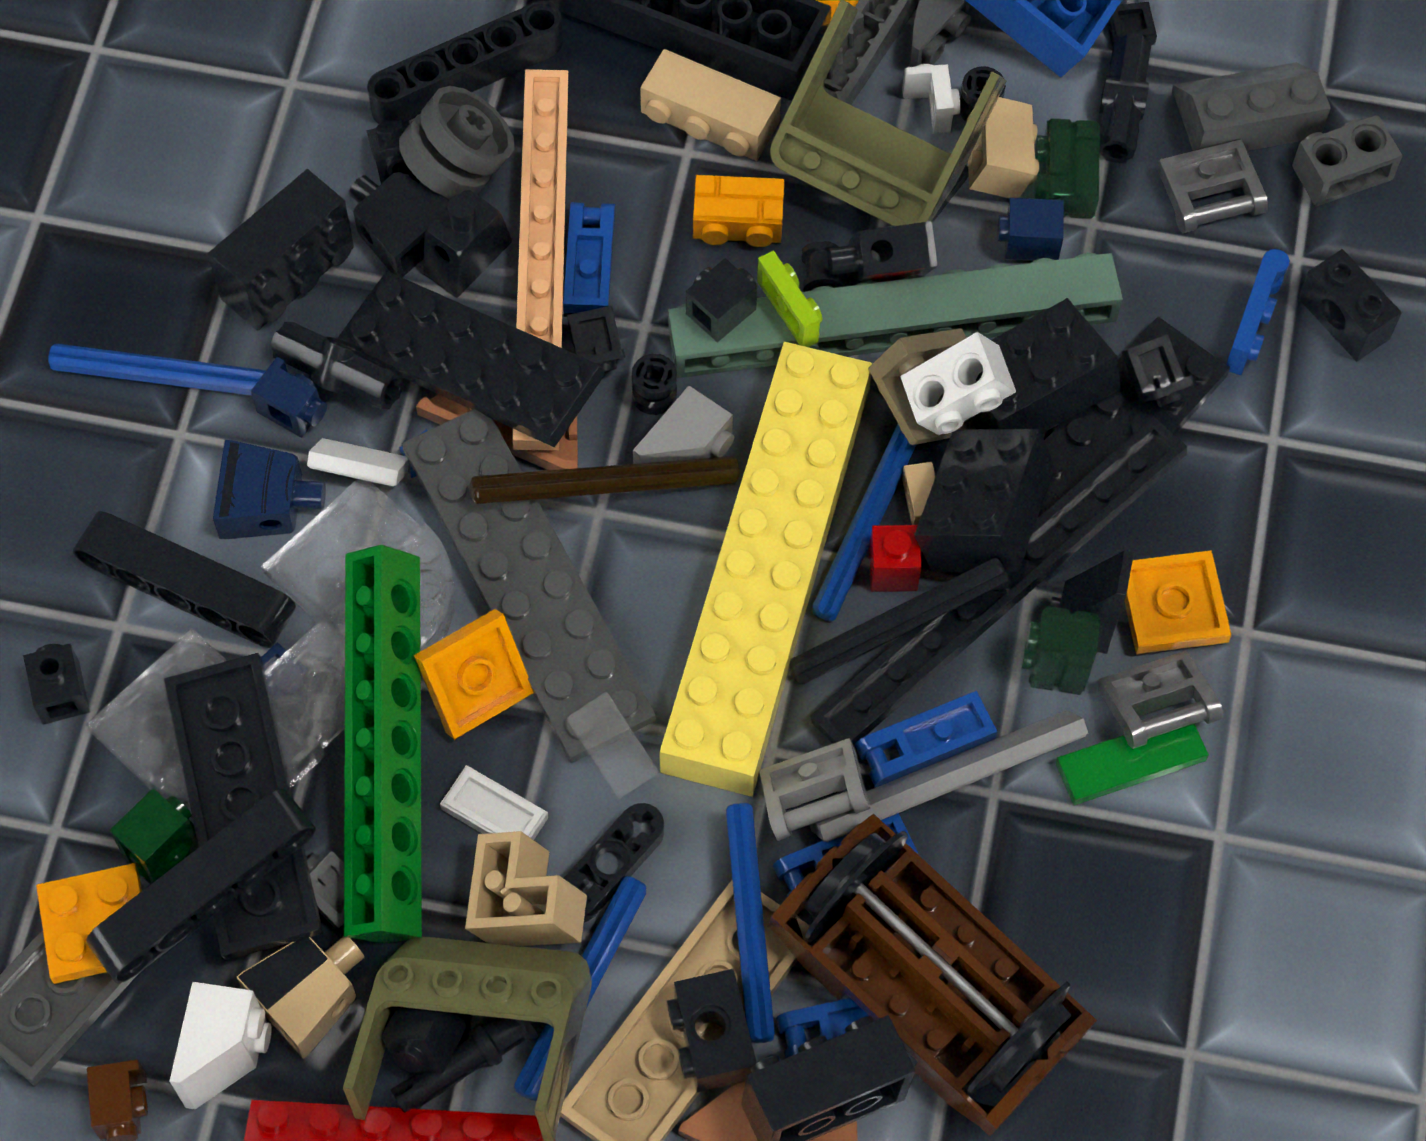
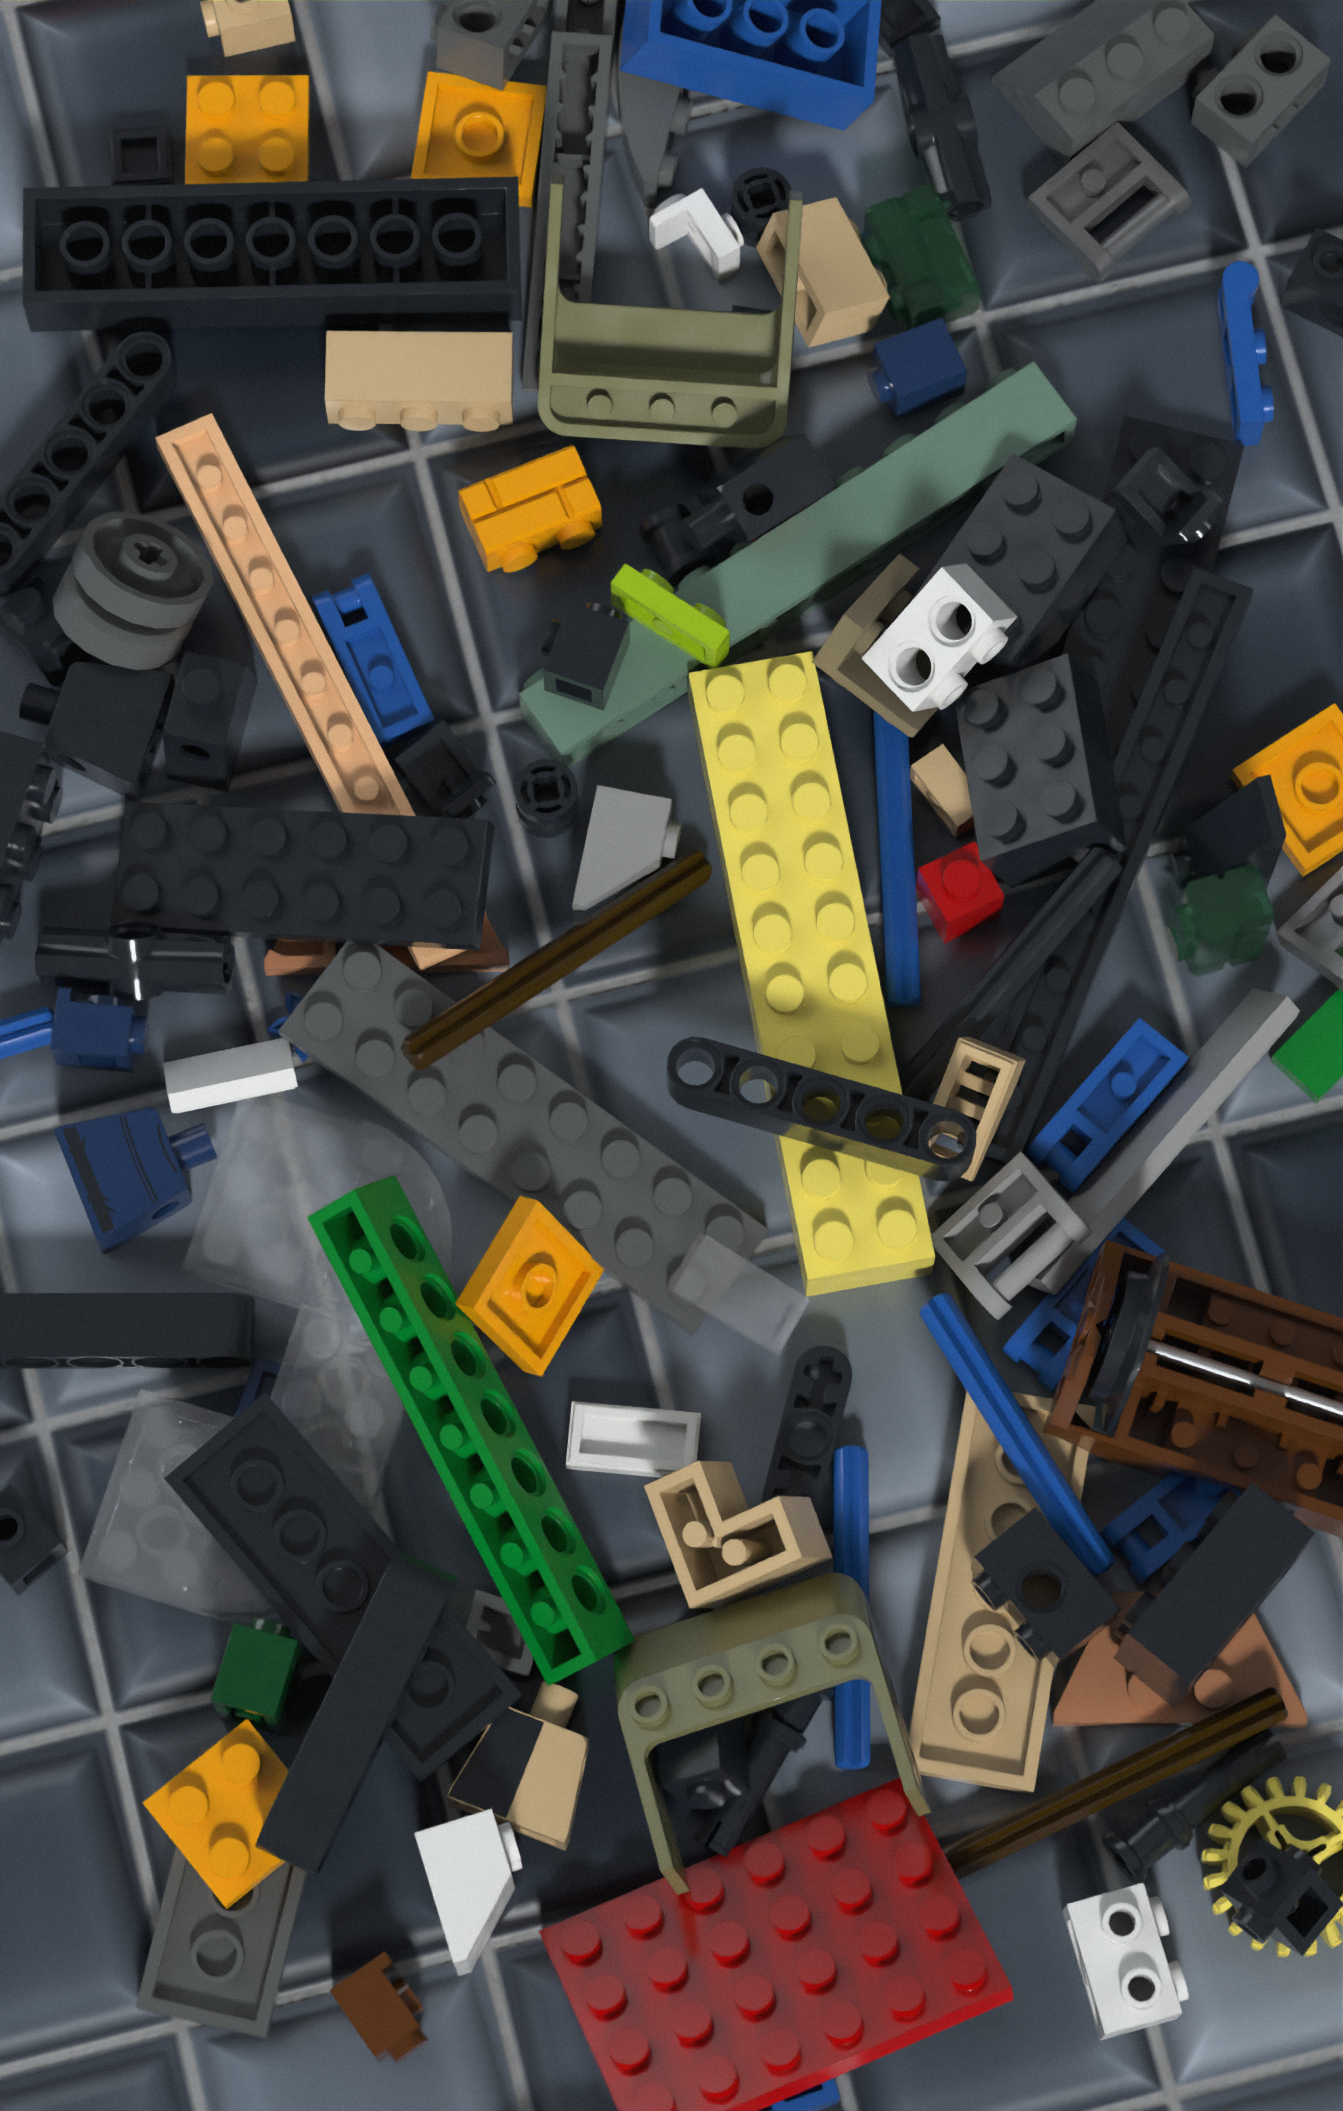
camera: 25 degrees left, 10 degrees up
(729, 660) = (799, 1084): none -> black beam
(852, 694) = (1000, 1092): none -> tan slope

